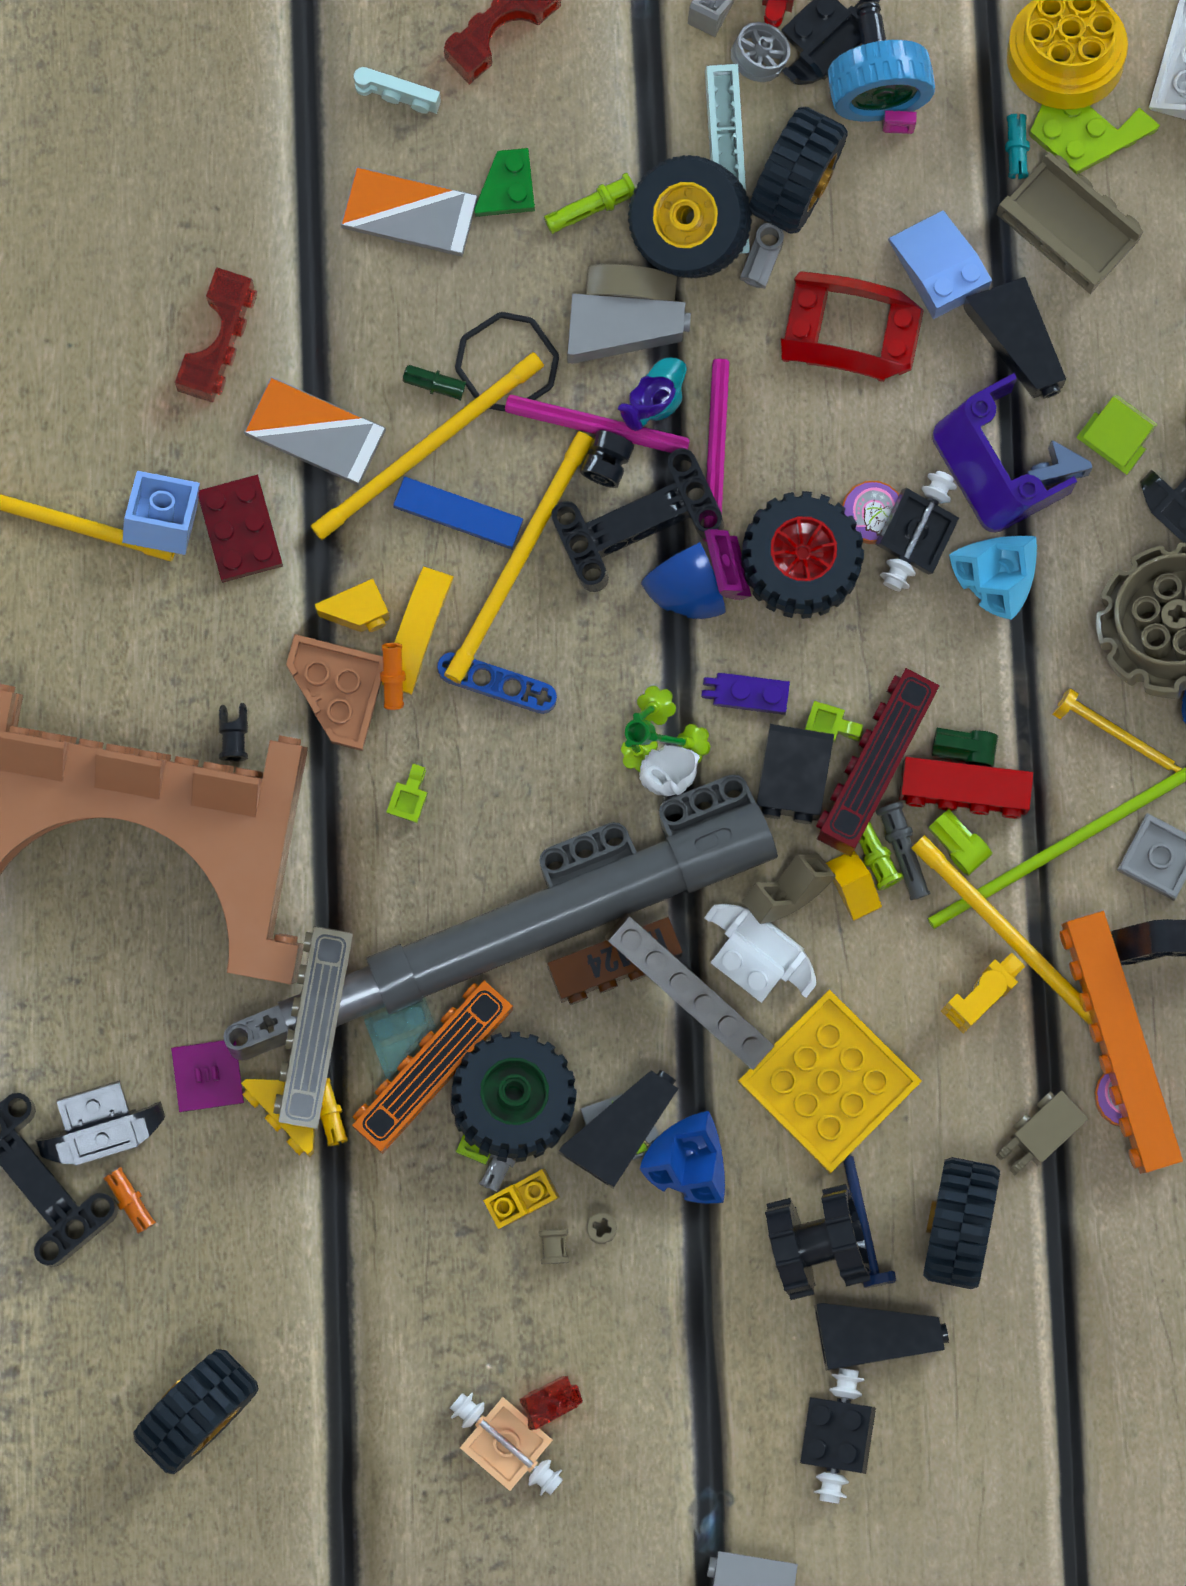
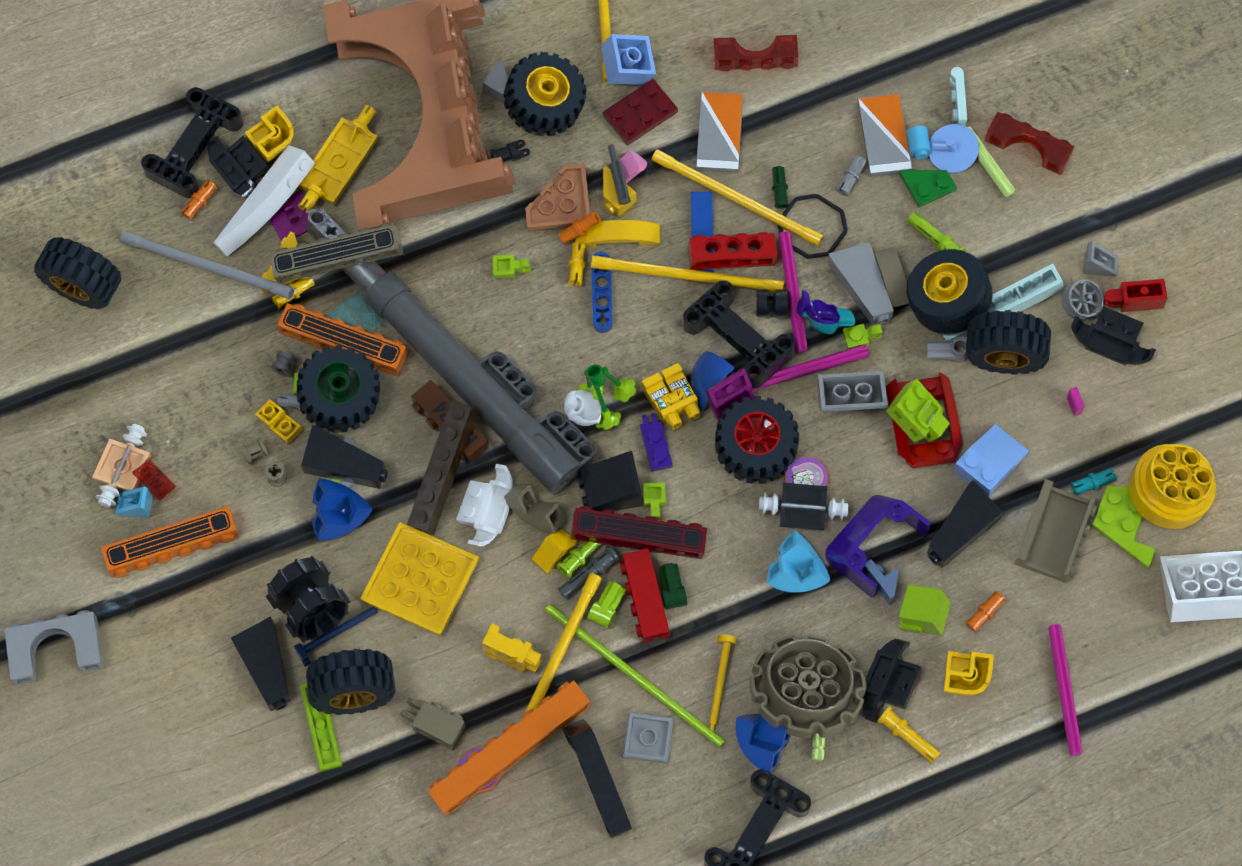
camera: 75 degrees right, 10 degrees down
(73, 1059) = (271, 134): none -> yellow brick
(119, 710) = (495, 82): none -> light grey slope
(148, 979) = (338, 160): none -> yellow plate
(163, 1309) = (274, 287): none -> light grey piece
(169, 648) = (544, 94): none -> black wheel
(171, 1099) = (266, 198): none -> white slope
(323, 574) = (632, 165): none -> bright pink tile
(343, 593) = (618, 177): none -> dark grey axle
(438, 1161) = (284, 363): none -> flat silver wheel
(442, 701) = (577, 264): none -> yellow pin
(443, 170) = (918, 142): none -> medium azure brick
(454, 279) = (851, 175): none -> light grey axle
(468, 128) = (953, 148): none -> light blue shield
(503, 529) = (723, 258): none -> red brick
(504, 92) = (994, 170): none -> yellowish green axle
(569, 1445) = (135, 503): none -> medium azure slope
(648, 1410) = (169, 542): none -> brick
(690, 645) = (671, 396): none -> yellow hips
(697, 362) = (858, 335): none -> lime plate
(786, 403) = (852, 391): none -> light grey slope
(838, 1435) = (192, 662): black plate -> none
(847, 328) = (918, 412): none -> lime piece
(879, 73) = (1097, 371): dark azure wheel -> none
(997, 1290) = (322, 735): none -> lime tile
(1146, 355) = (985, 611): none -> orange pin

